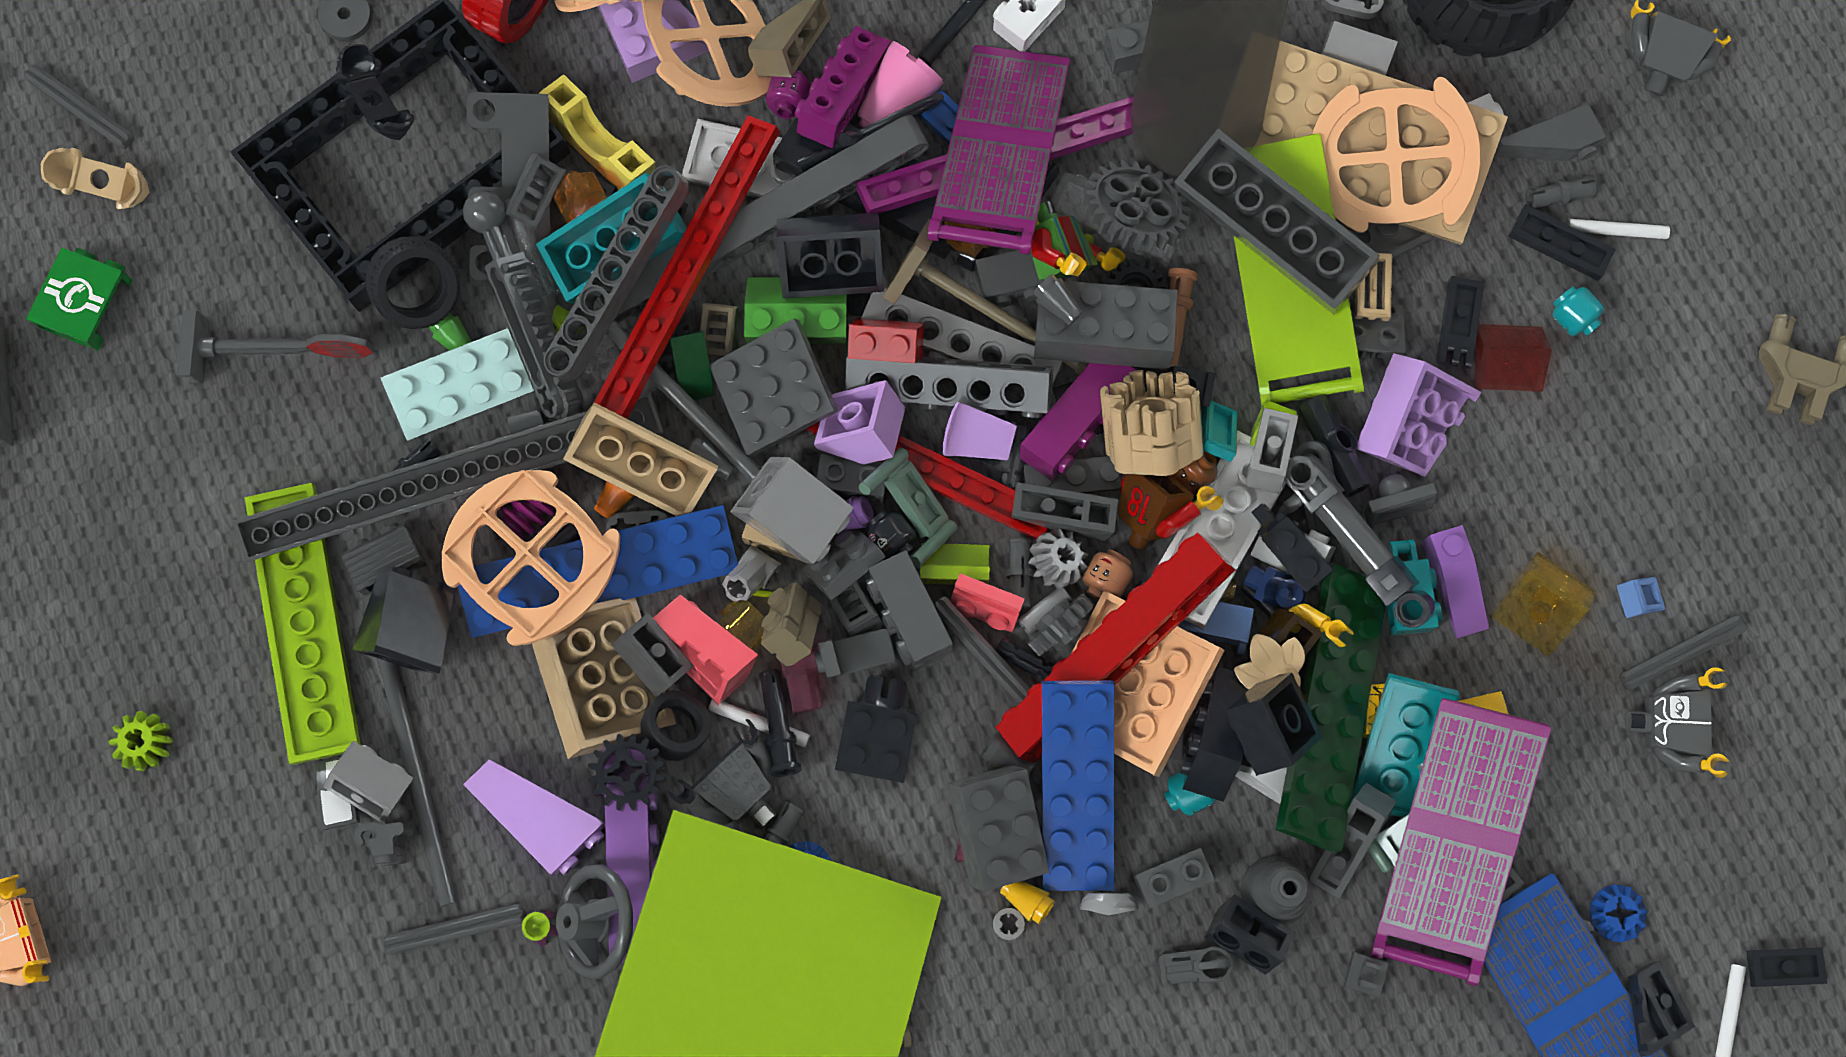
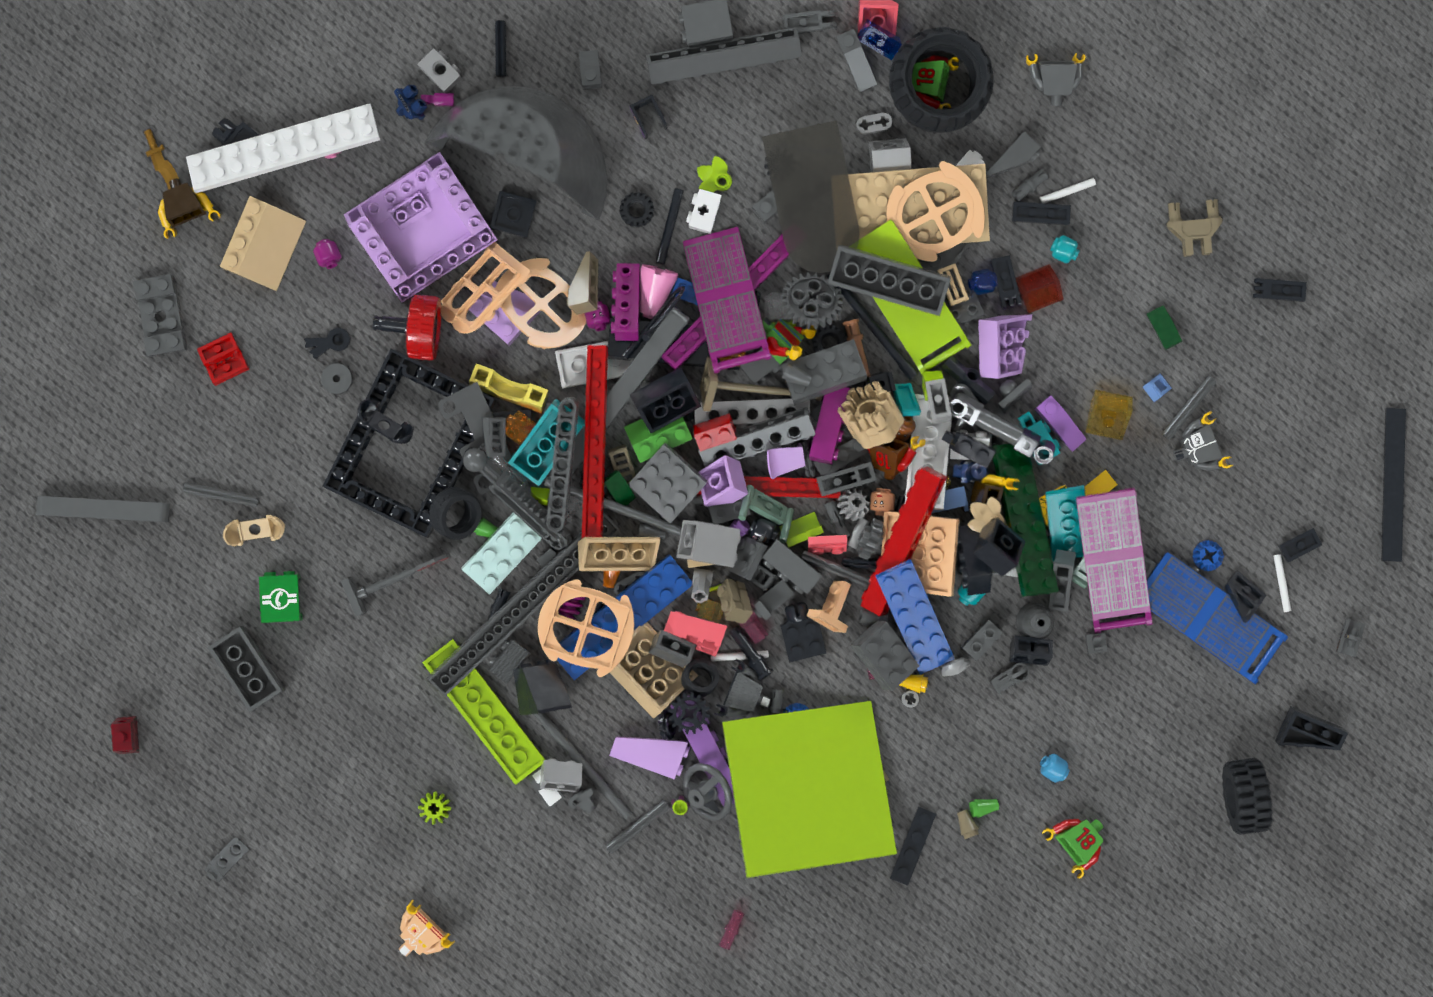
camera: 25 degrees left, 10 degrees up
(577, 789) = (667, 731): none -> black gear
(945, 710) = (832, 607): none -> light nougat bracket
(1238, 377) = (903, 364): none -> black piece
(1423, 304) = (983, 281): none -> clear blue head
(1693, 505) = (1164, 327): none -> dark green slope

